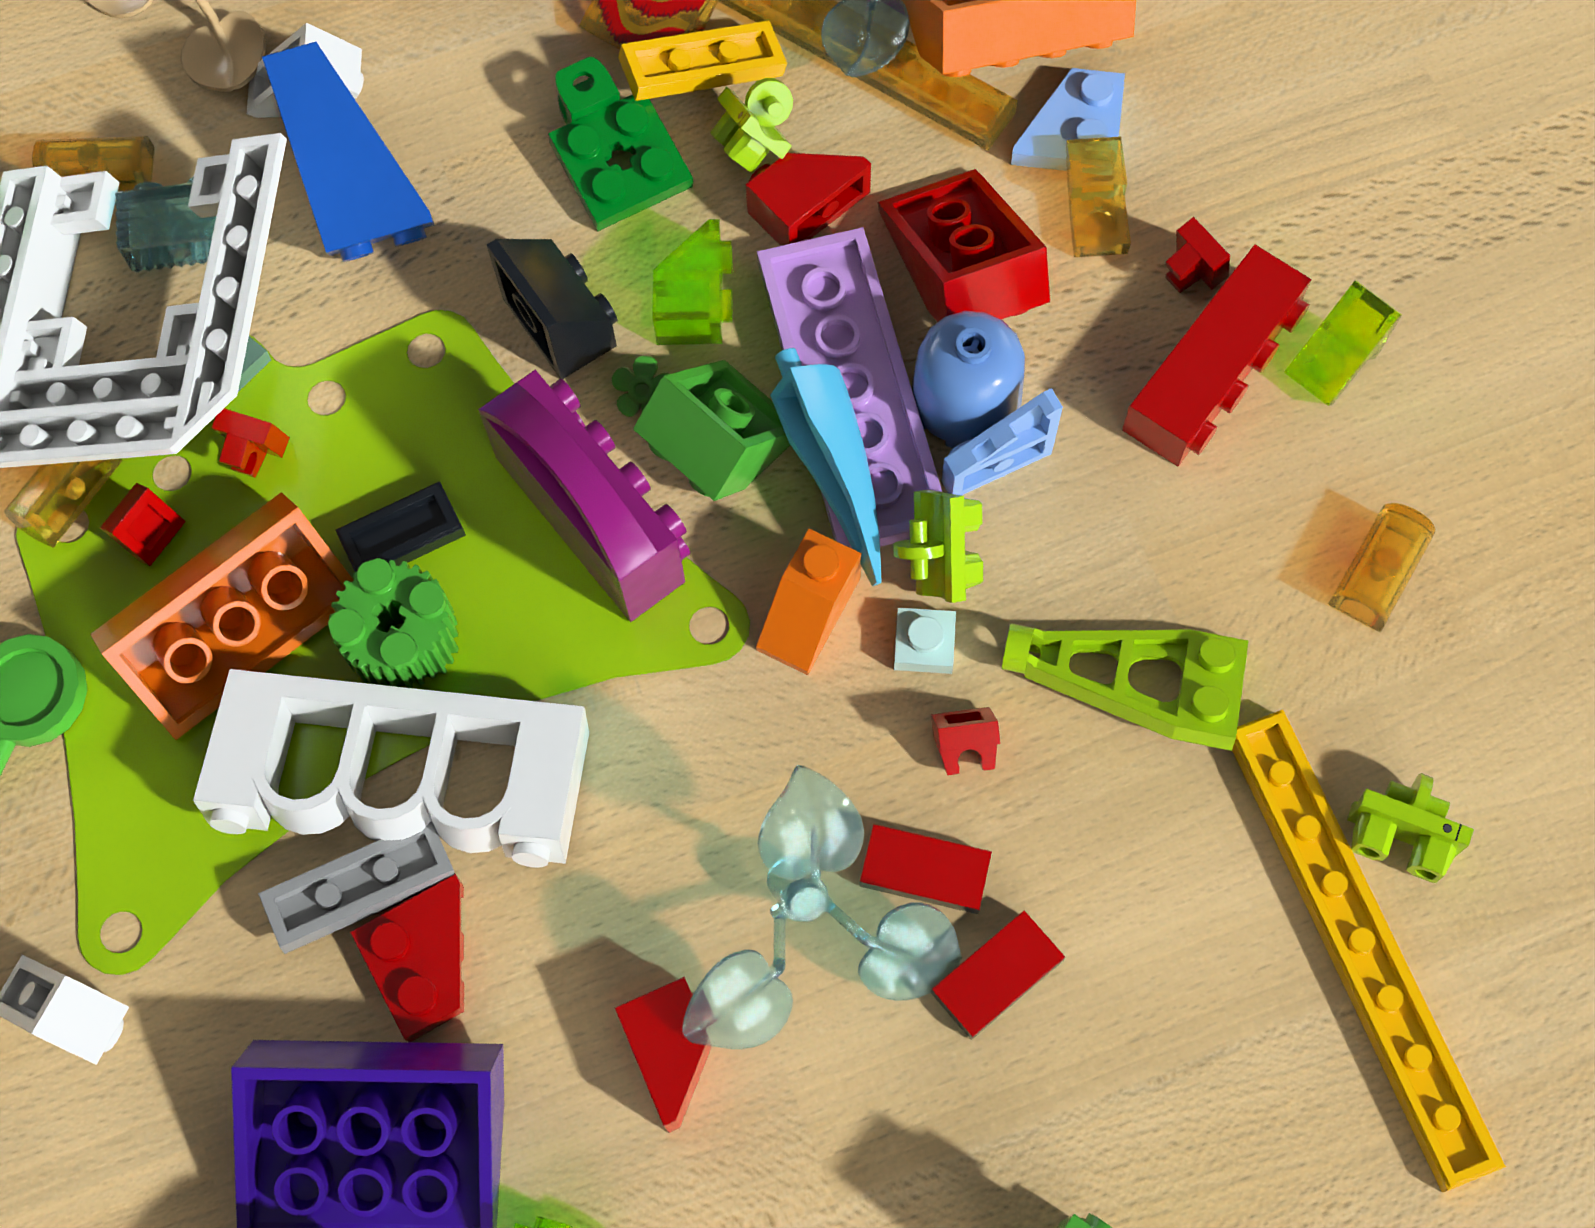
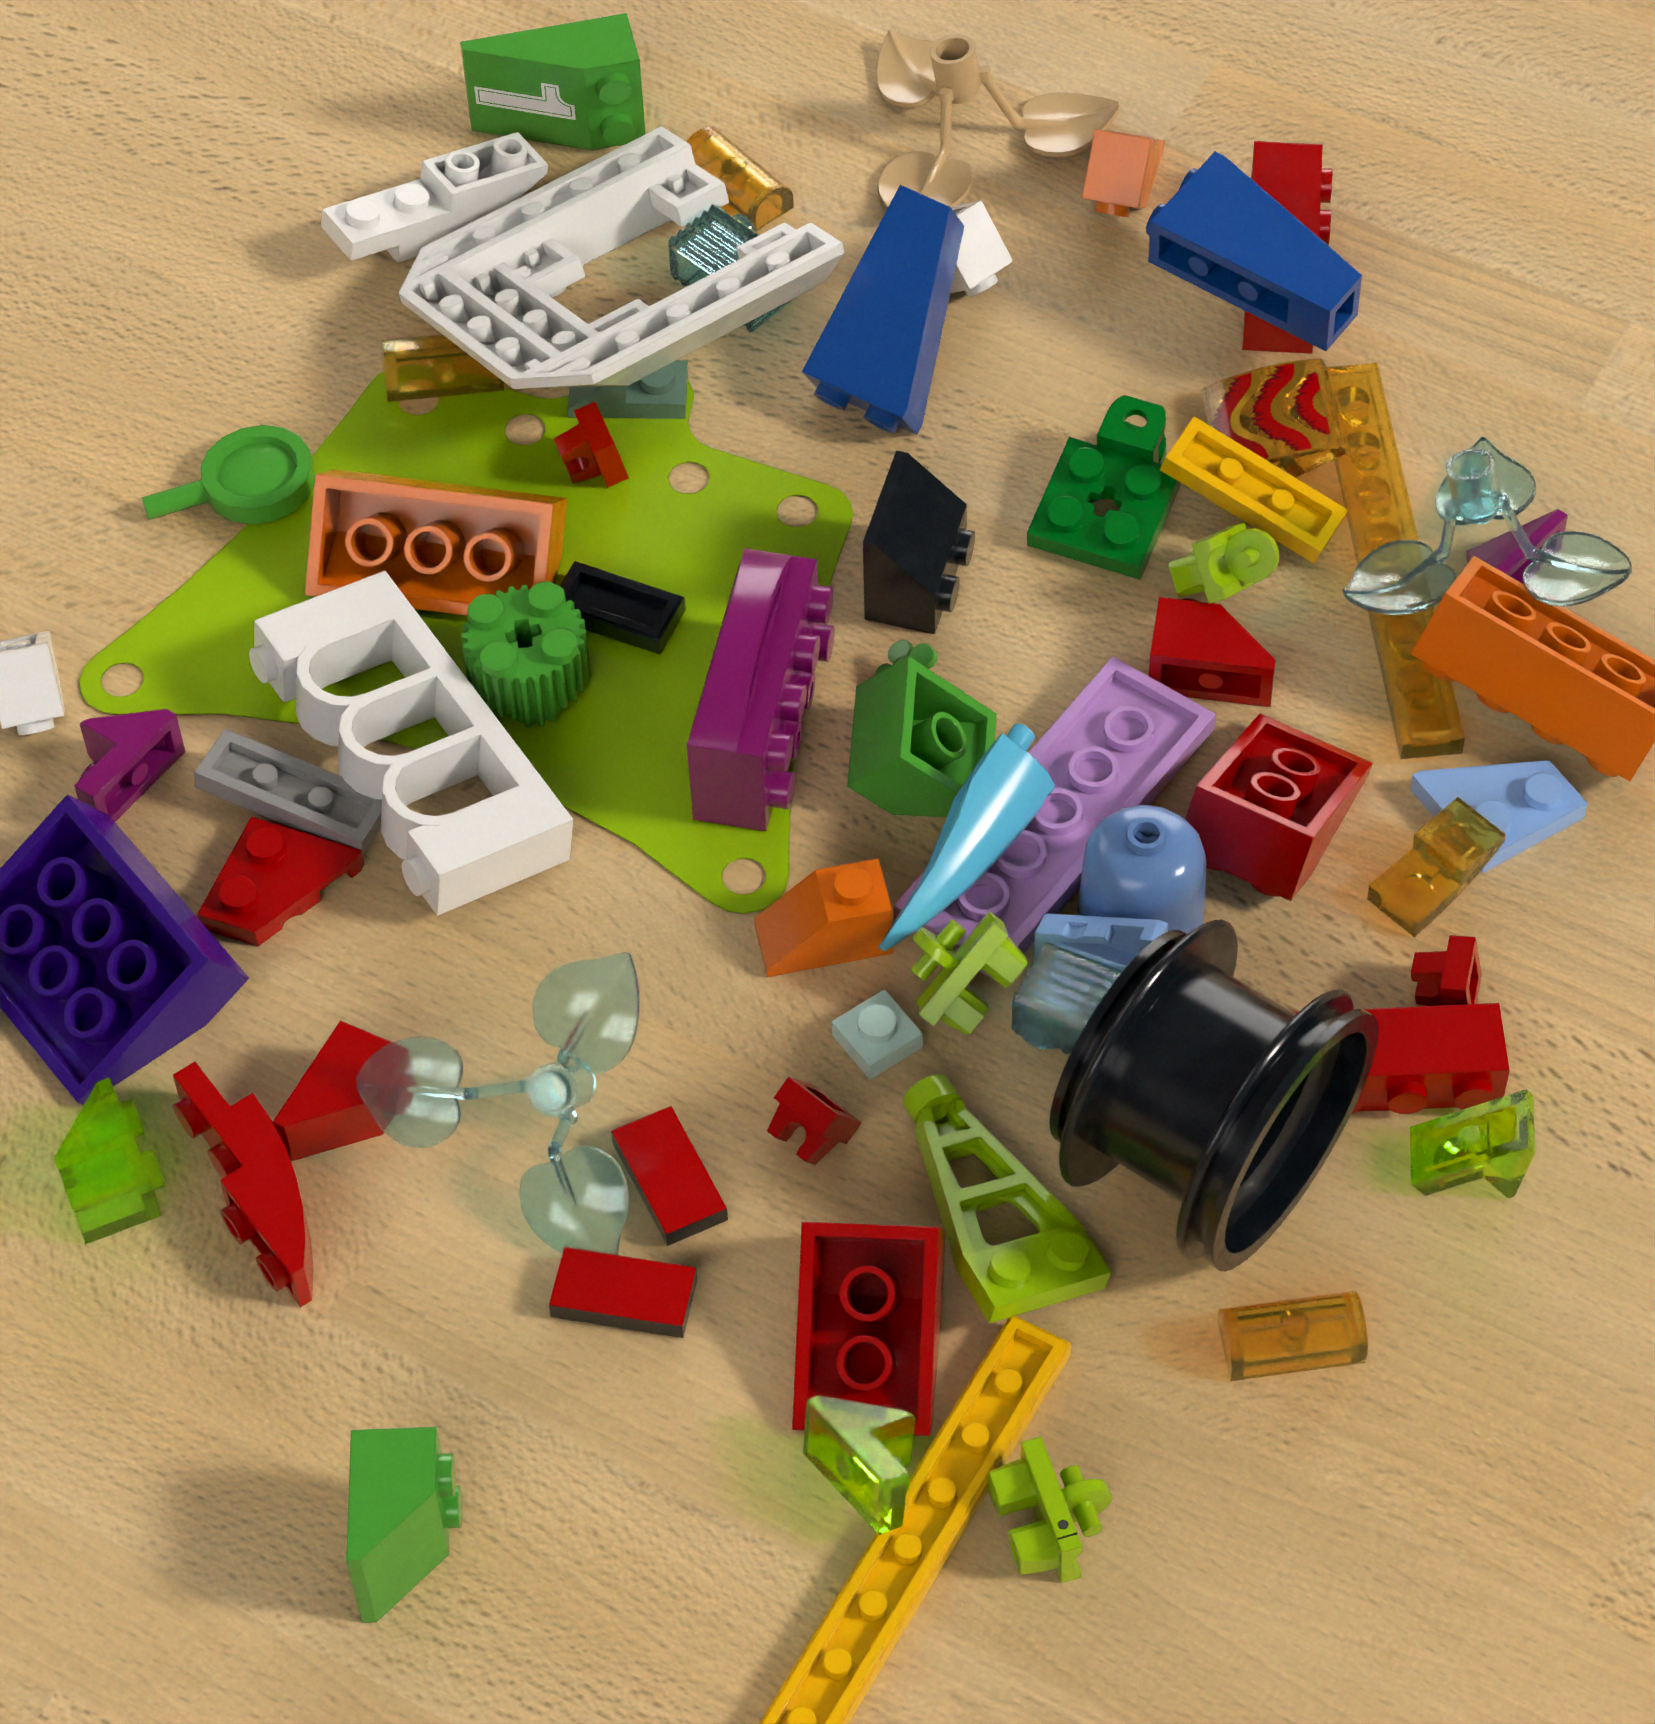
camera: 50 degrees right, 15 degrees down
(143, 524) = (456, 436): red tile -> none
(211, 976) = (127, 757): none -> magenta slope
(689, 291) = (1031, 638): clear neon green slope -> none
(714, 1175) = (255, 1180): none -> red slope
(1033, 493) = (1059, 997): none -> clear light blue brick
(1170, 829) = (869, 1317): none -> red slope
(1231, 466) = (1210, 1091): none -> black wheel
(1264, 921) = (862, 1455): none -> clear neon green slope

